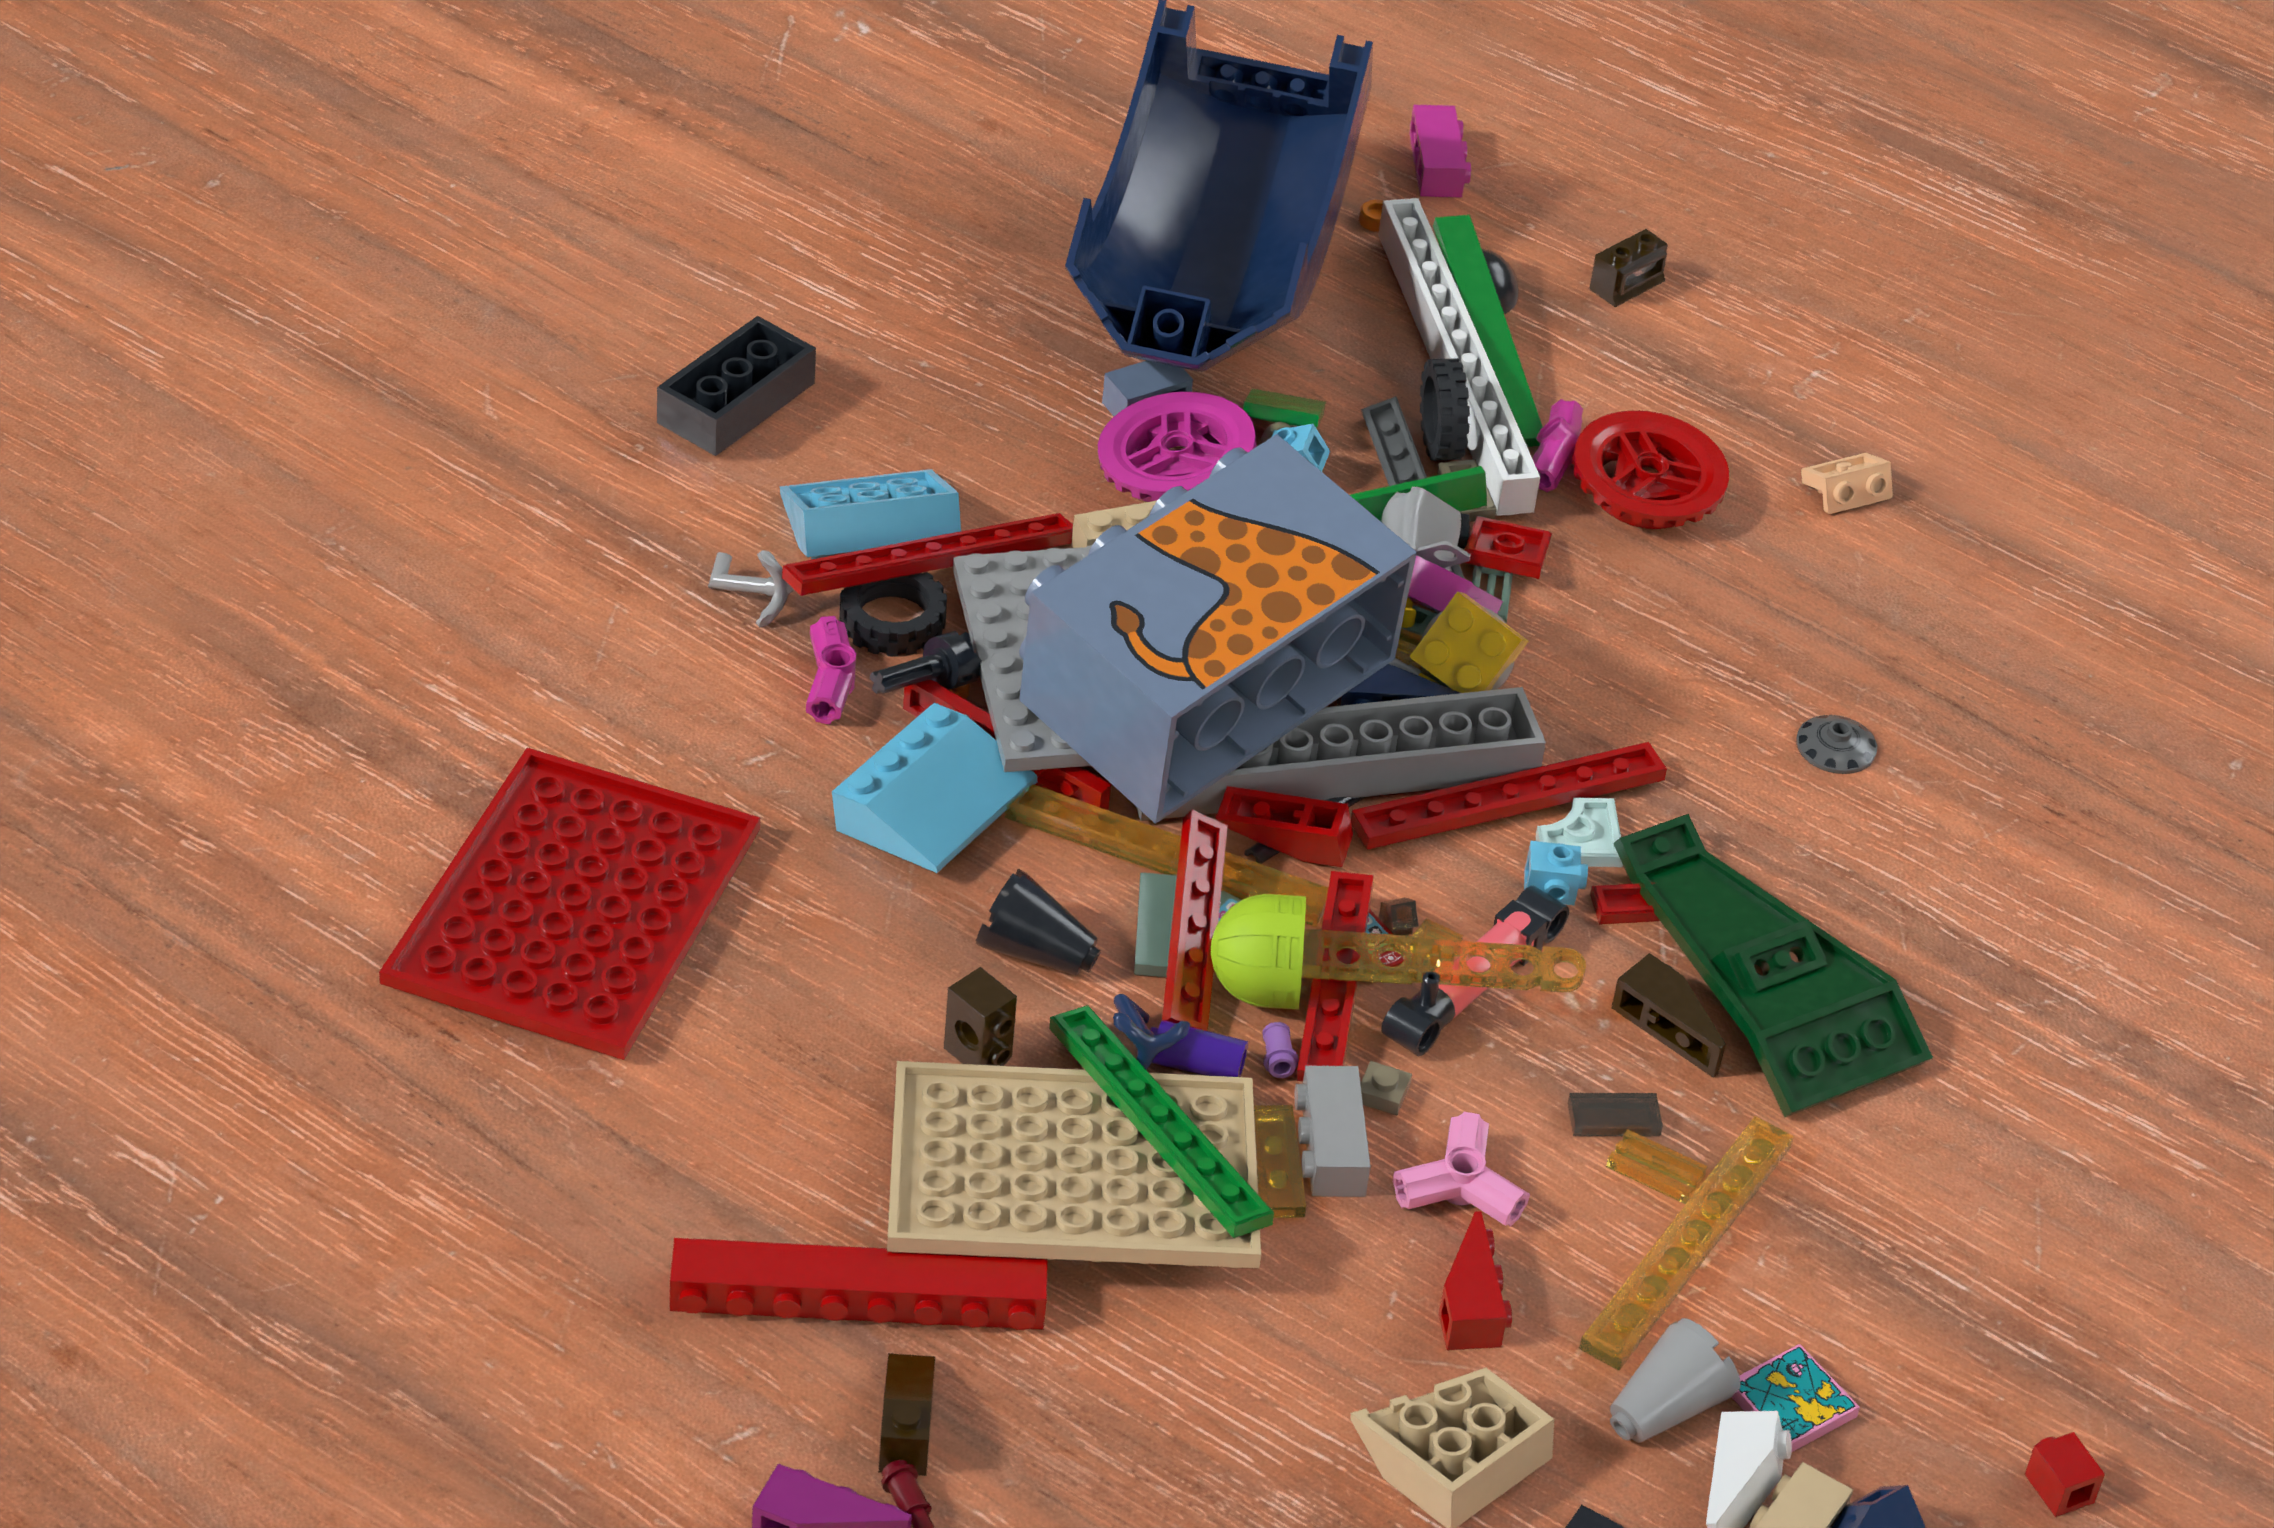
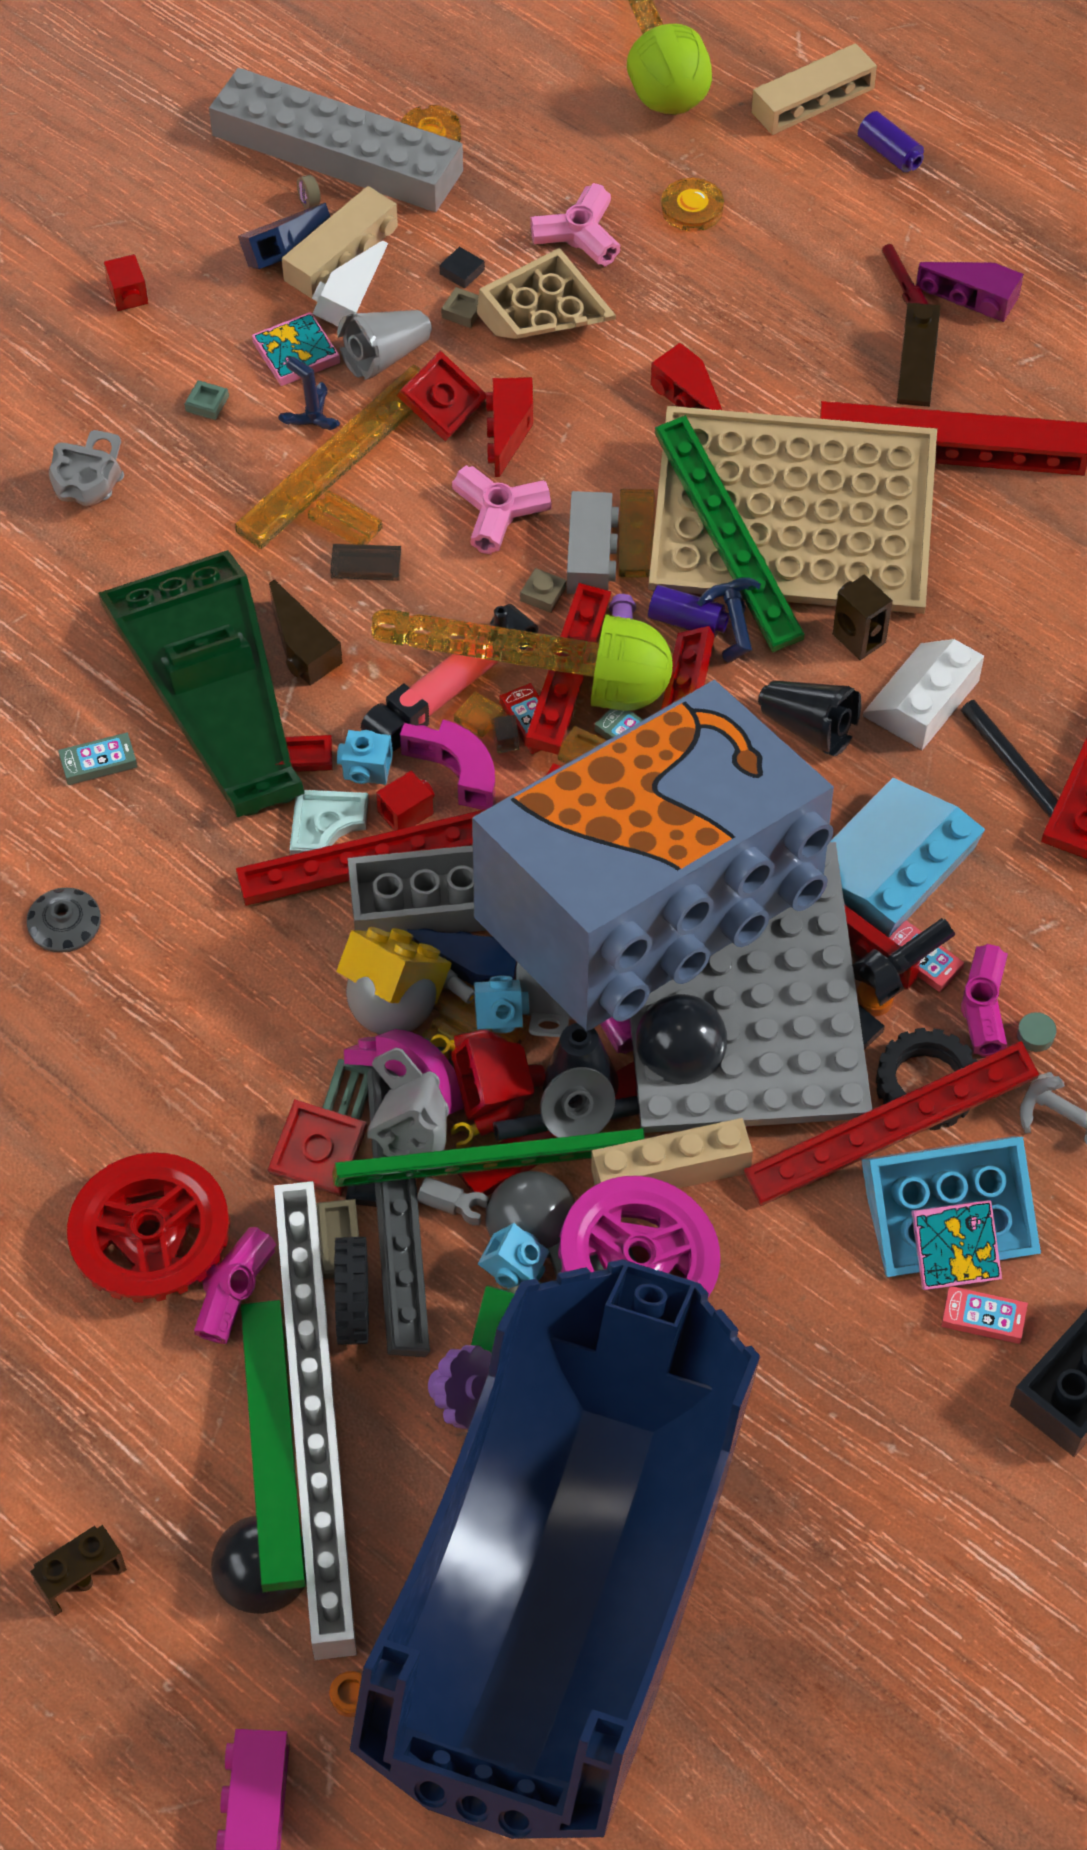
camera: 170 degrees left, 15 degrees up
(774, 655) = (1036, 1031): none -> sand green tile
(791, 918) = (1010, 756): none -> black piece
(837, 442) = (984, 1314): none -> tile
(866, 473) = (956, 1244): none -> tile
(885, 713) = (937, 967): none -> coral tile
(896, 970) = (926, 690): none -> white slope
(1233, 1347) = (683, 379): none -> red slope
(1326, 368) = (460, 1383): none -> medium lavender plant
(1444, 888) = (458, 751): none -> dark pink arch
(1497, 838) = (405, 801): none -> red brick
(1570, 1316) = (442, 395): none -> red tile
(1573, 1473) = (461, 307): none -> dark tan tile
(1742, 1299) = (314, 399): none -> dark blue piece
(1861, 889) = (97, 758): none -> tile
(1890, 1323) = (206, 400): none -> sand green tile
(2007, 1195) = (85, 473): none -> light grey piece

